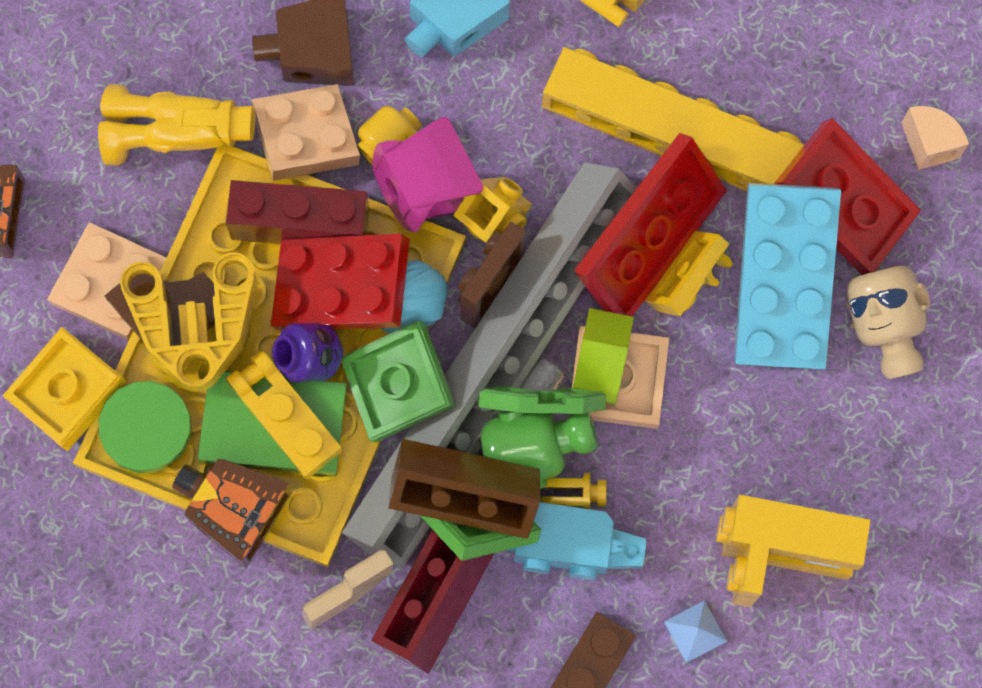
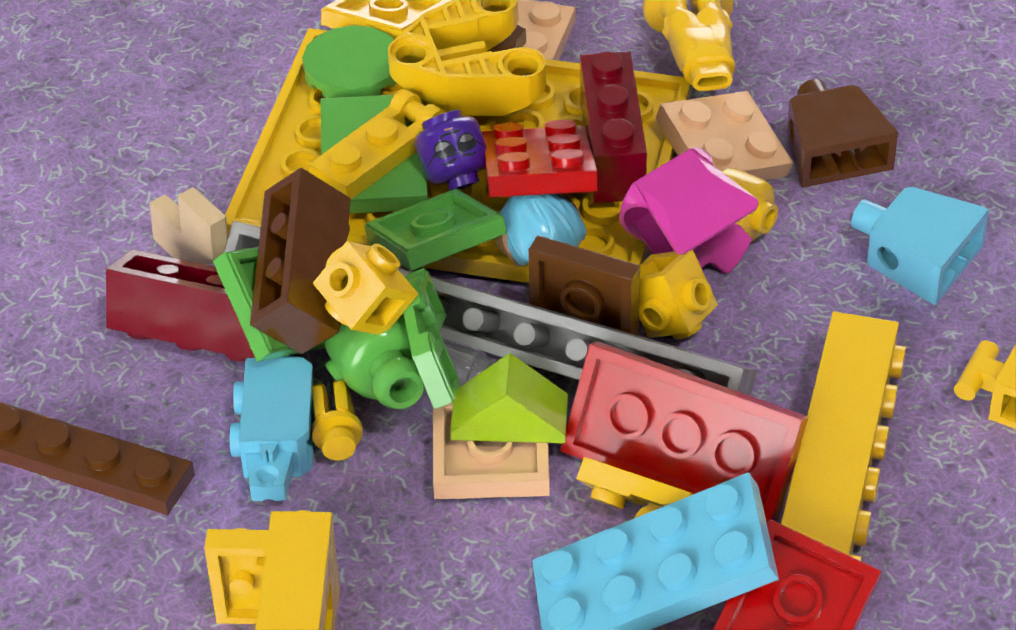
camera: 85 degrees right, 30 degrees down
(233, 505) = (266, 128): torso -> none
(527, 437) = (365, 287): none -> yellow brick
(695, 631) = (176, 568): light blue slope -> none

